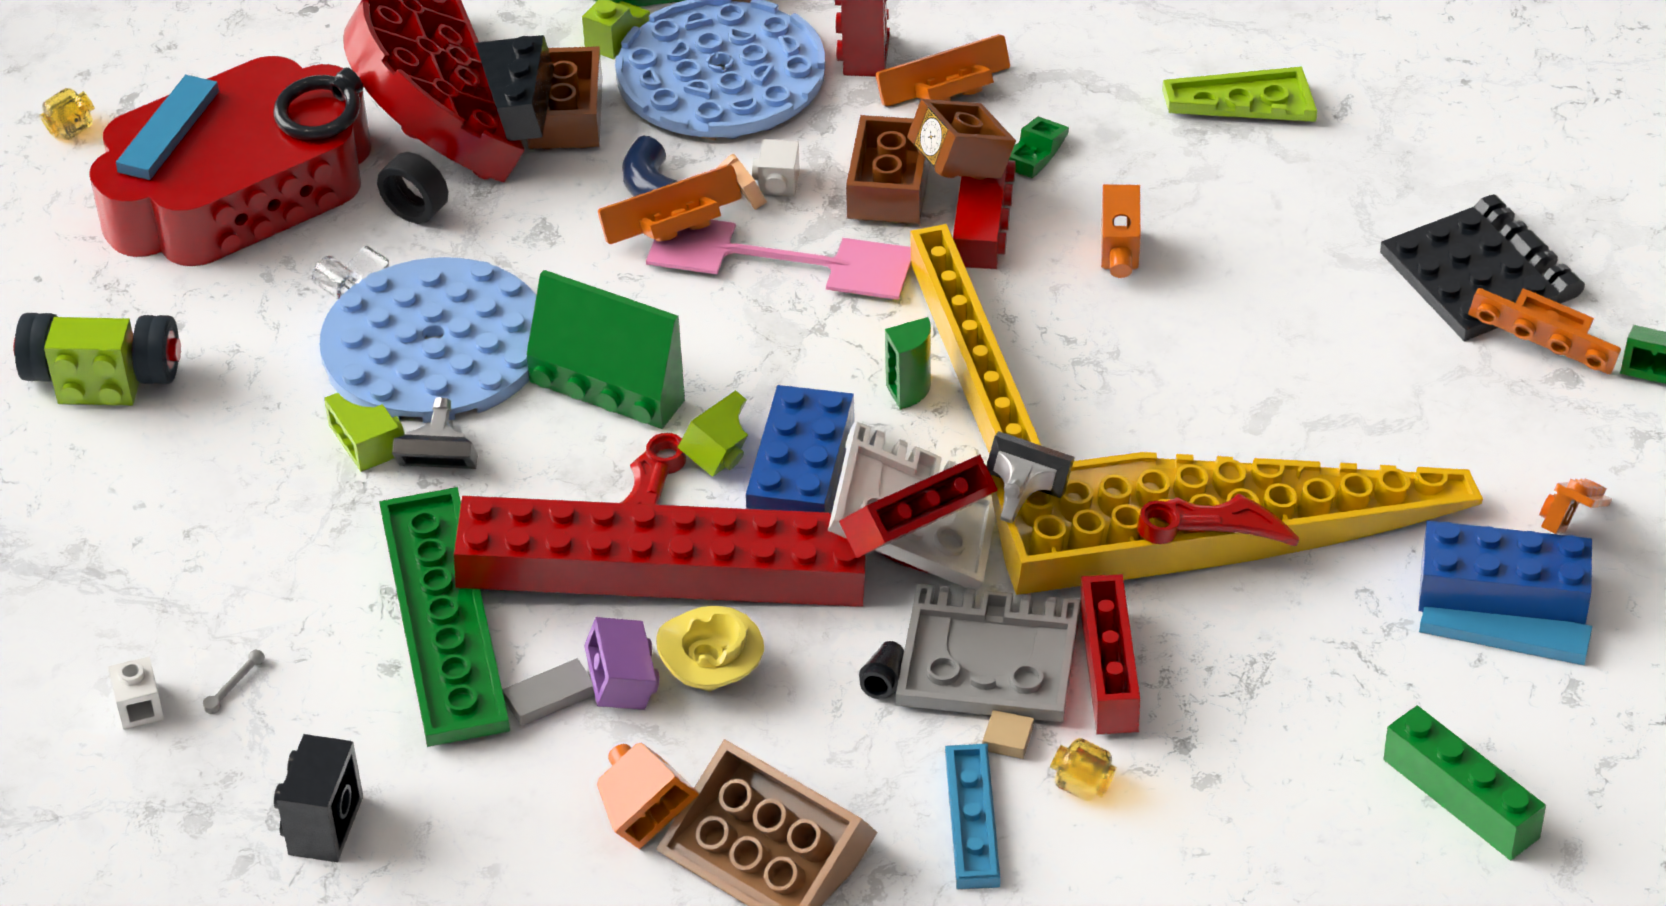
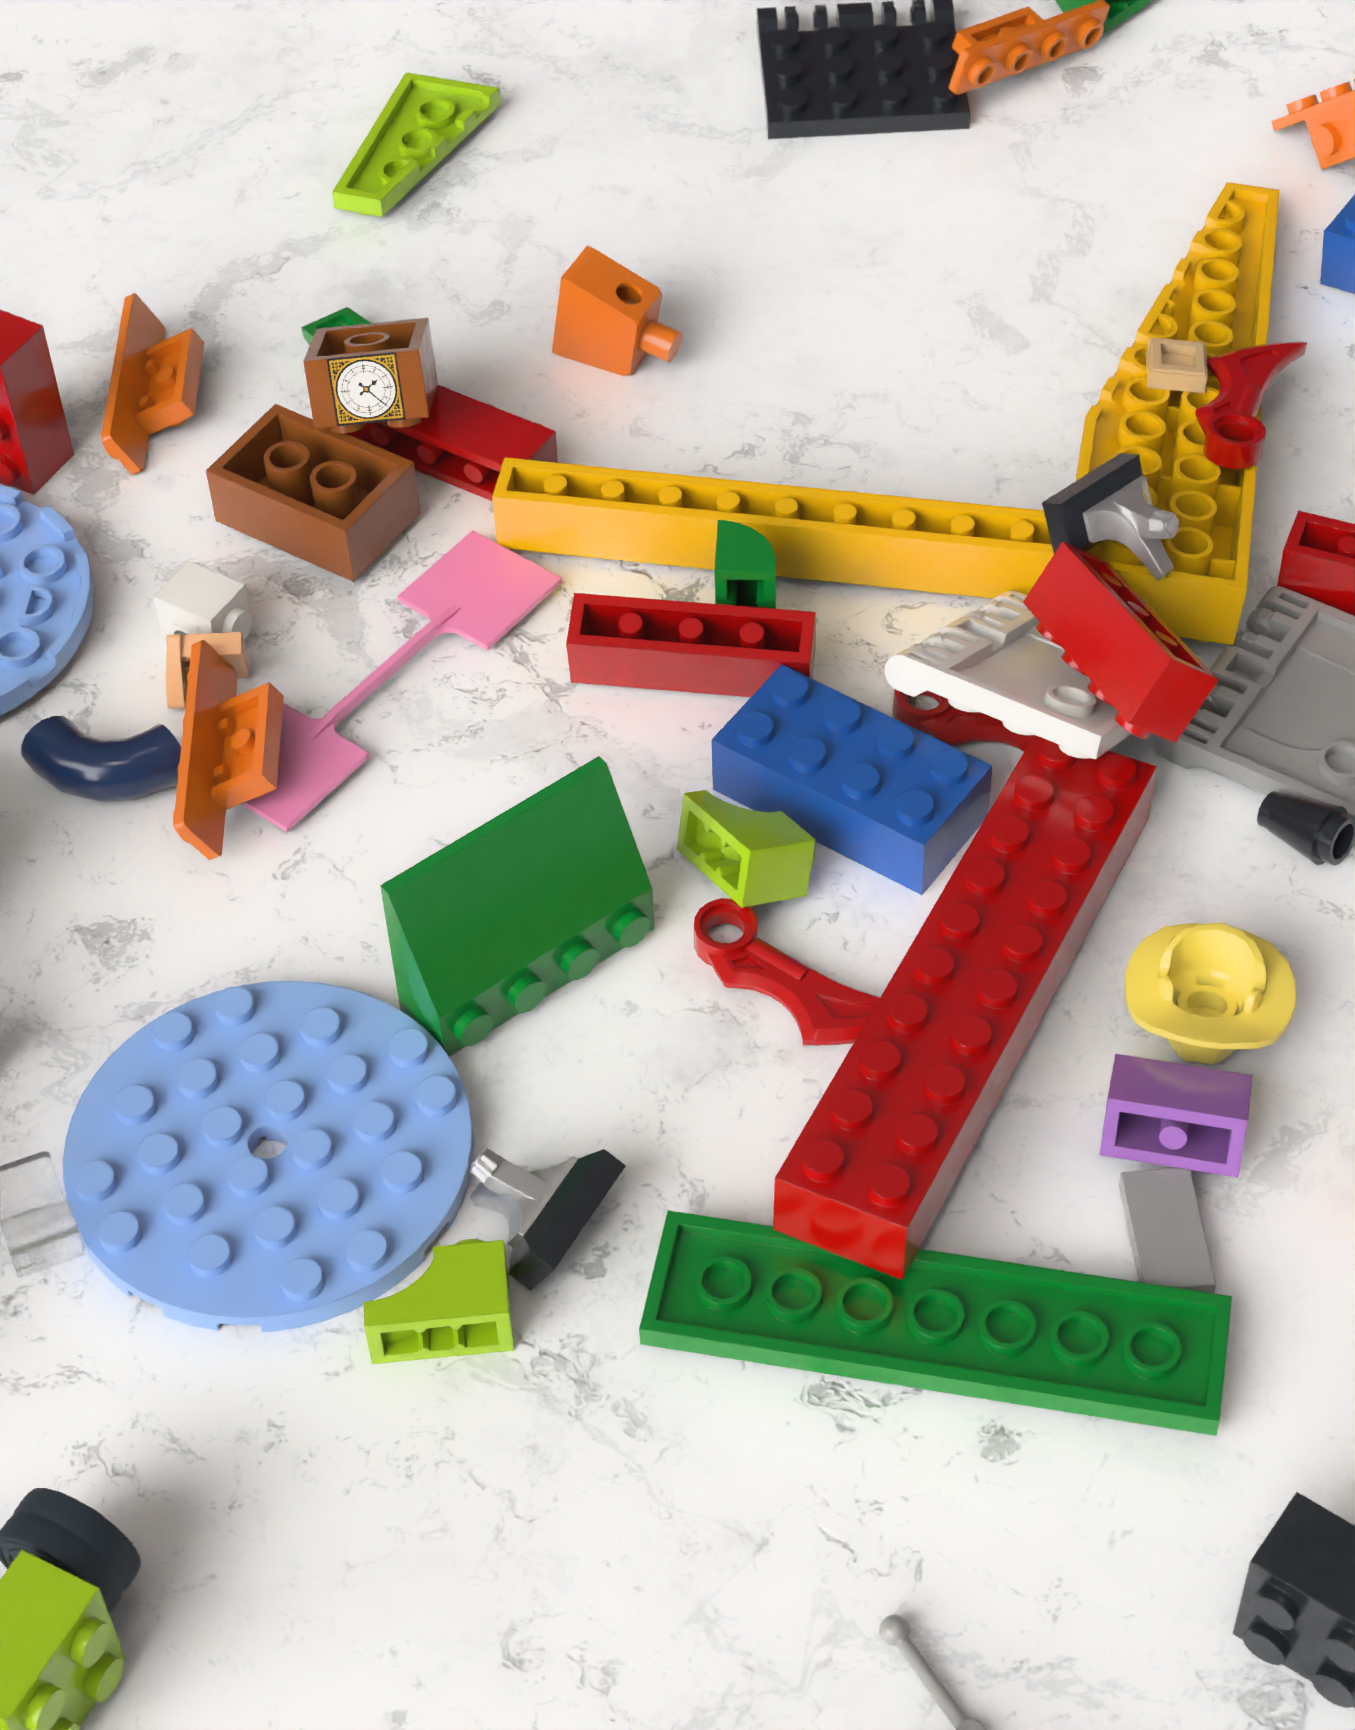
camera: 65 degrees left, 5 degrees up
(858, 360) = (685, 644): none -> red brick
(1222, 480) = (1176, 365): none -> tan tile

